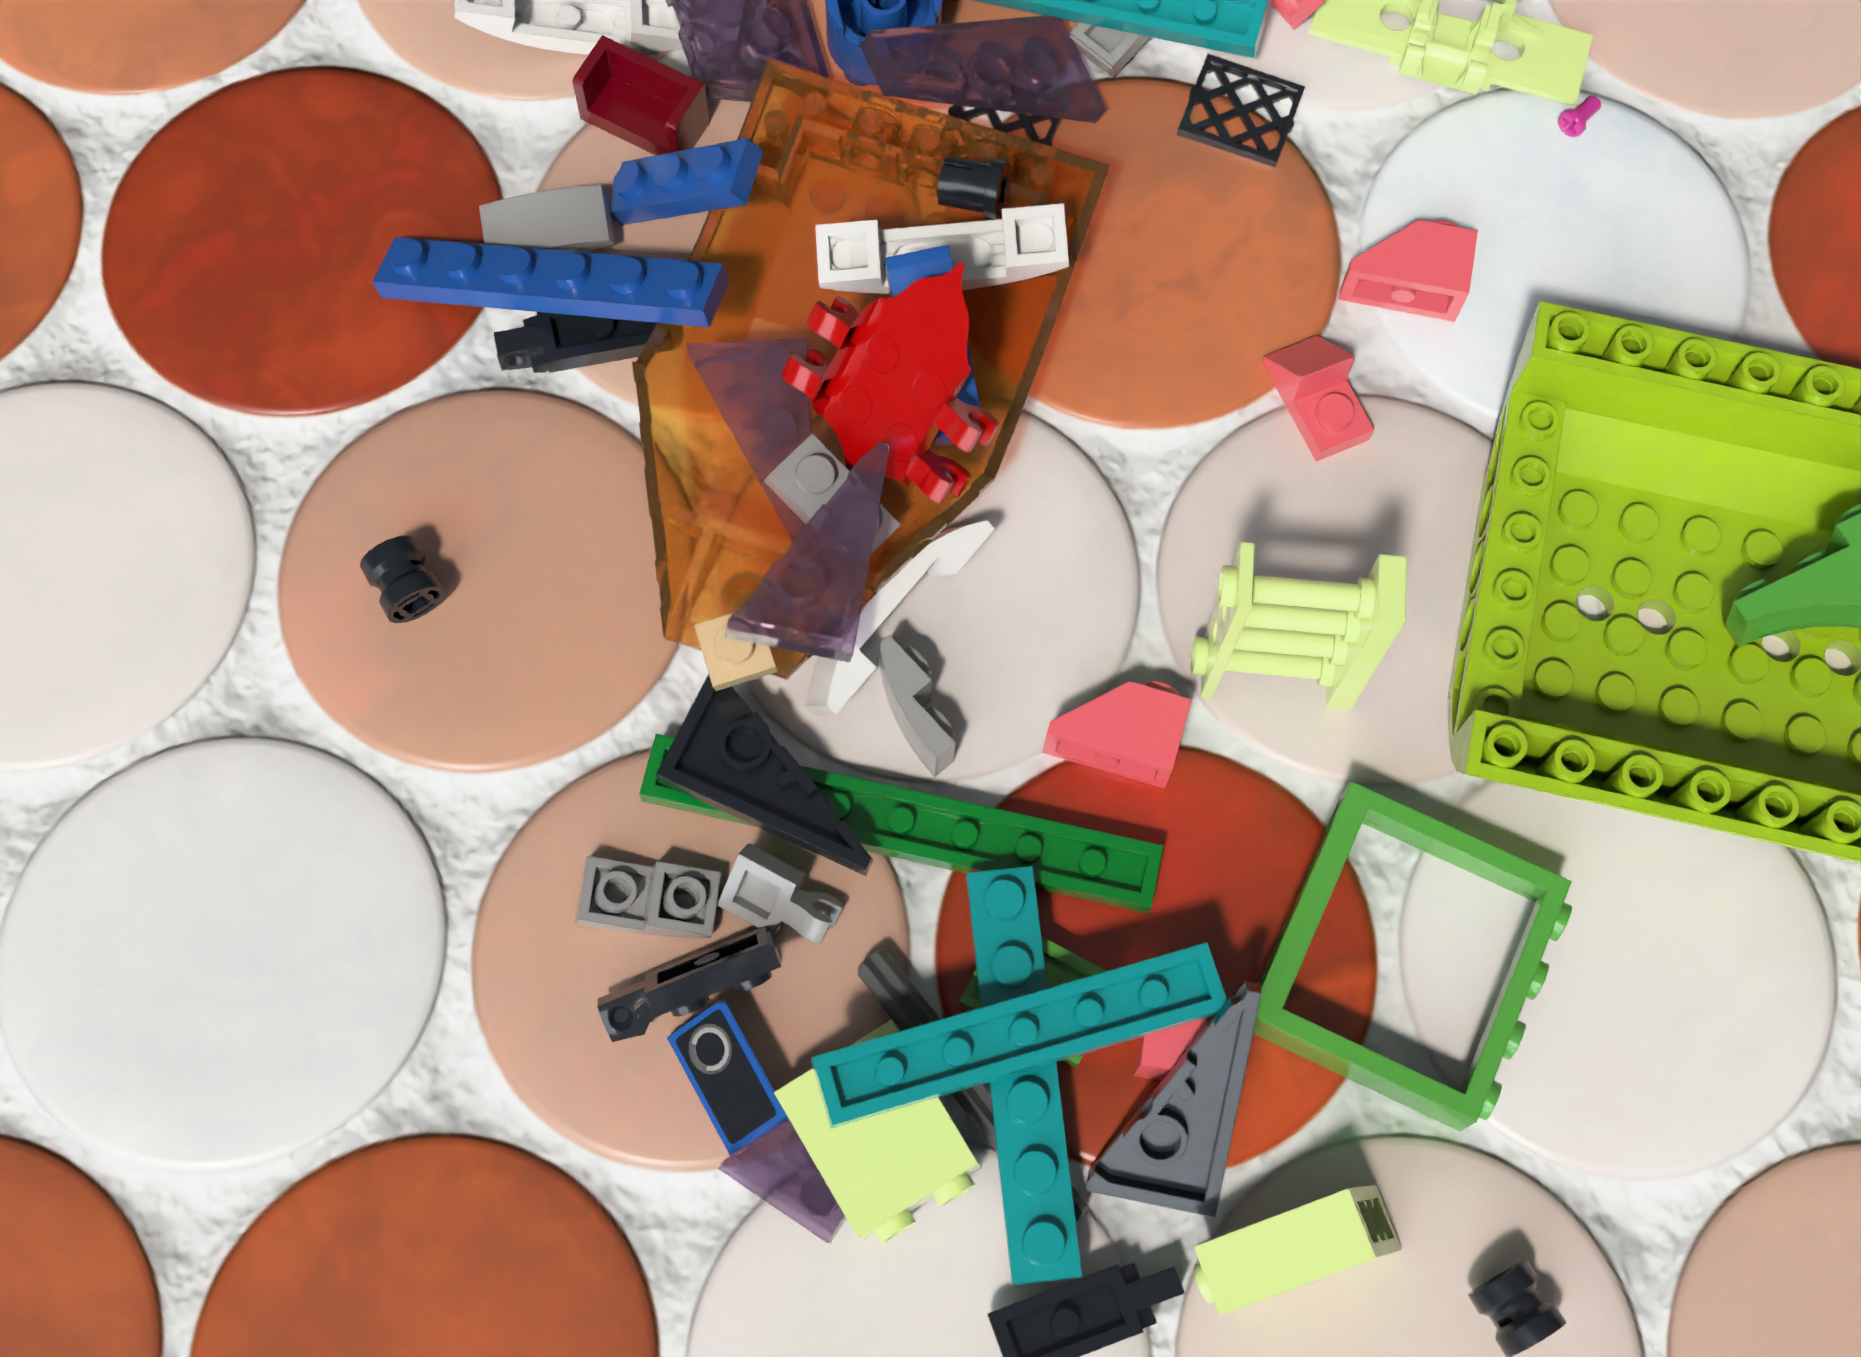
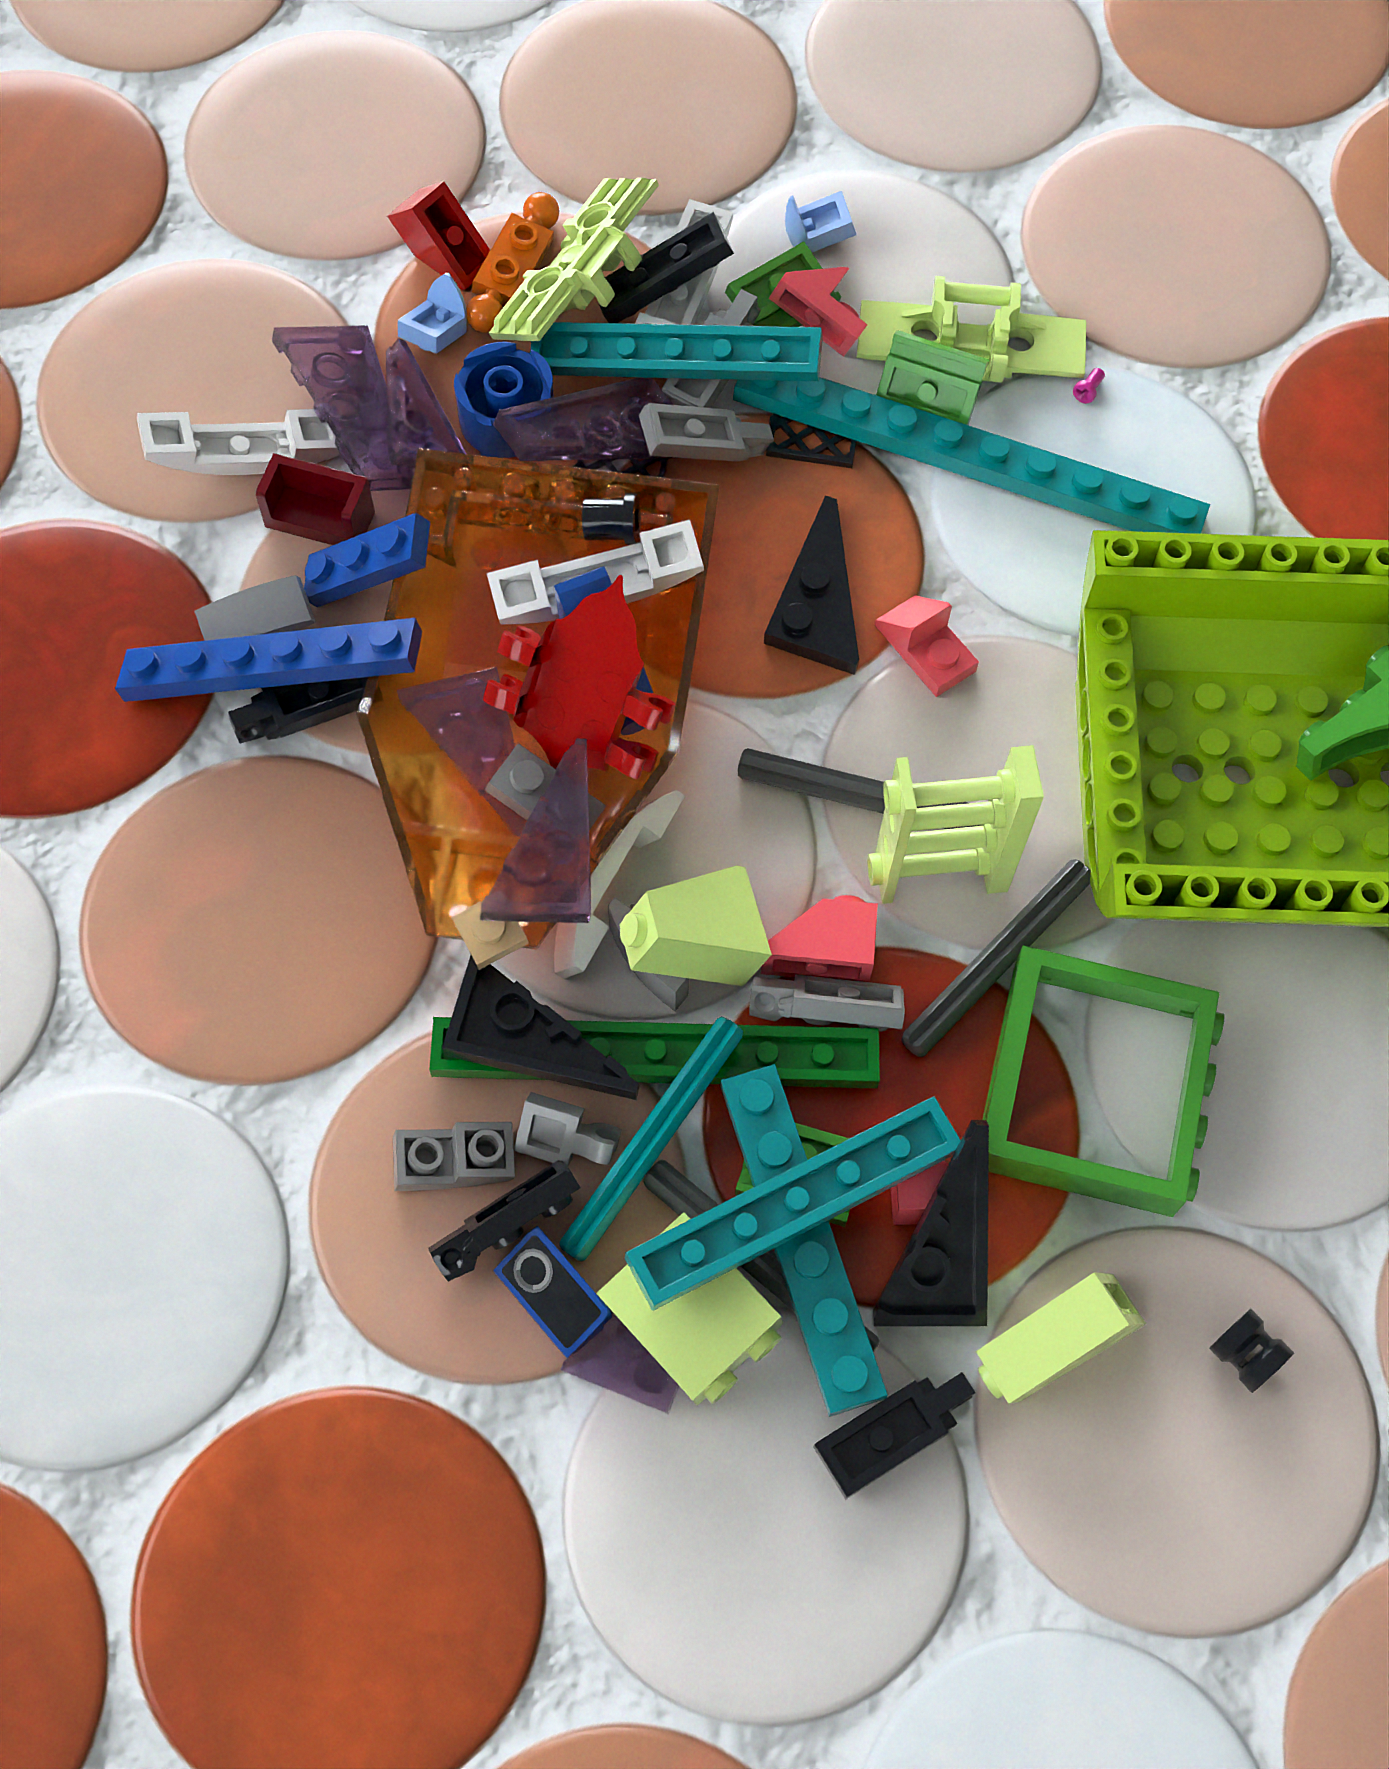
camera: 10 degrees left, 5 degrees down
(404, 582) = (191, 931): black wheel -> none
(875, 923) = (651, 1139): none -> teal axle
(976, 691) = (698, 929): none -> yellowish green slope
(1105, 96) = (702, 433): none -> light grey hinge
(1113, 801) = (828, 1001): none -> light grey hinge
(1150, 535) = (815, 781): none -> dark grey axle
(1197, 325) = (816, 606): none -> black wing
(1320, 787) = (996, 958): none -> dark grey axle
(1390, 78) = (932, 377): none -> bright green plate
(1415, 271) = (984, 529): coral slope -> none
(1433, 181) = (977, 454): none -> teal plate

